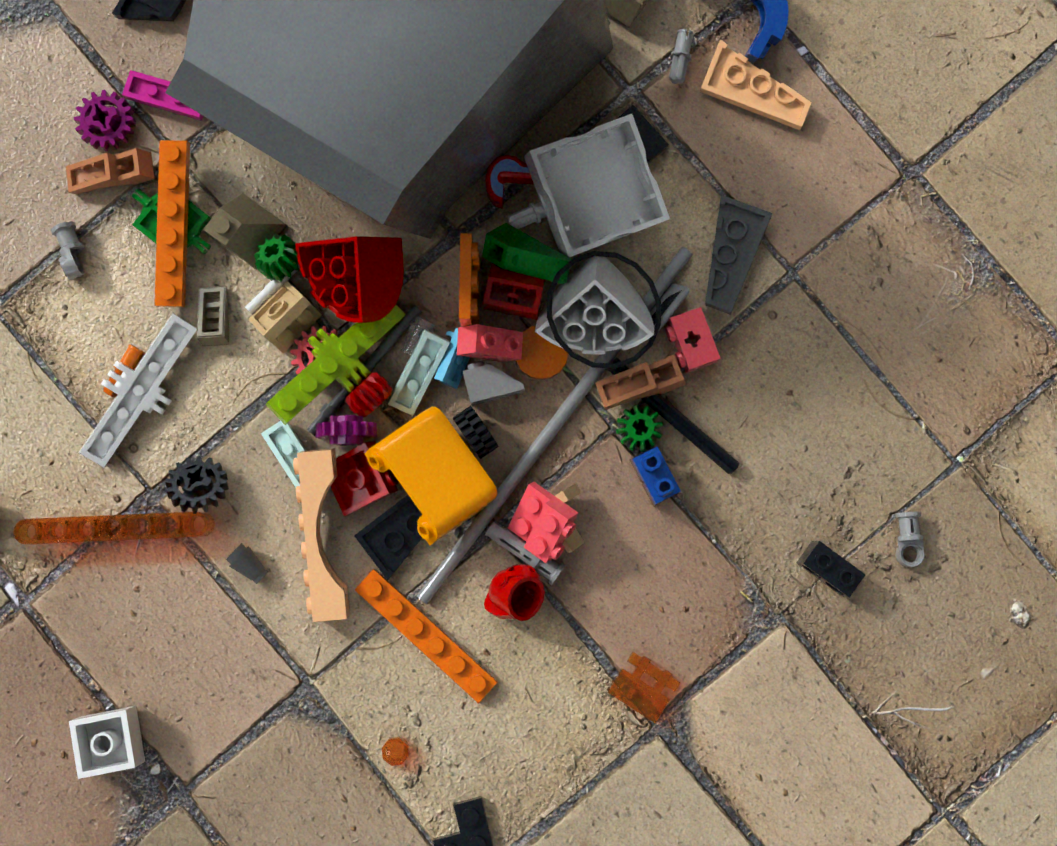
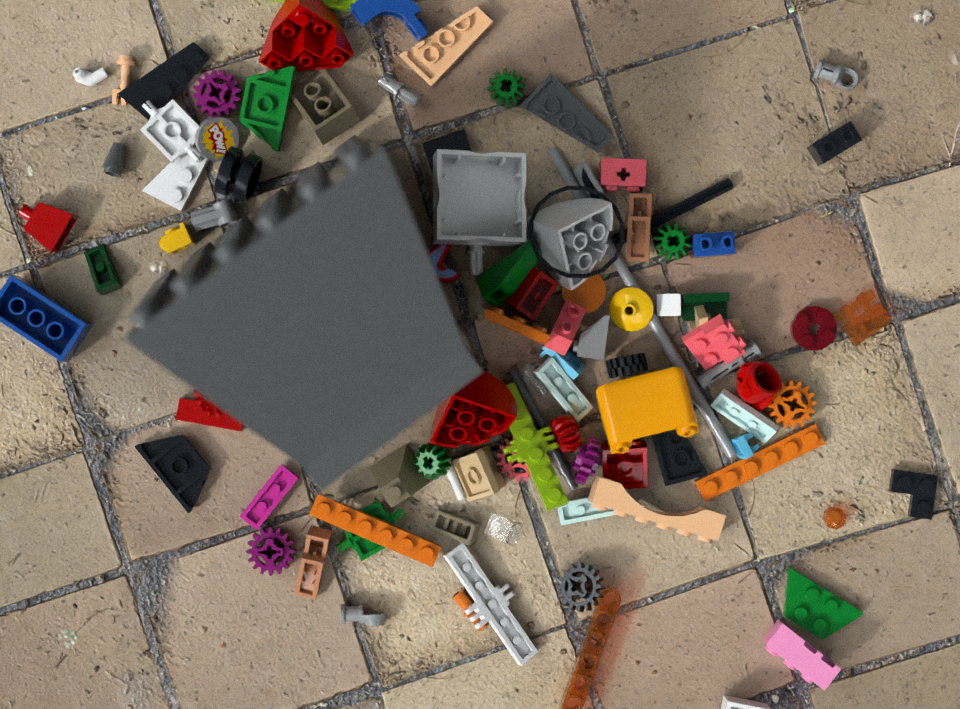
camera: 65 degrees left, 5 degrees up
(216, 777) = (800, 655): none -> bright pink wedge
(231, 371) = (503, 529): none -> clear bracket
(246, 563) = (653, 573): dark grey cone -> none
(281, 773) = (815, 607): none -> green wing
(436, 606) = (742, 447): none -> medium azure tile
(472, 594) = (744, 415): none -> light aqua plate
(494, 645) = (795, 396): none -> orange gear
(548, 424) = (641, 305): none -> yellow dish
(565, 454) = (668, 304): none -> white slope
(588, 501) = (713, 303): none -> dark green panel
(623, 637) = (825, 333): none -> dark red plate
(741, 179) = (514, 88): none -> green gear

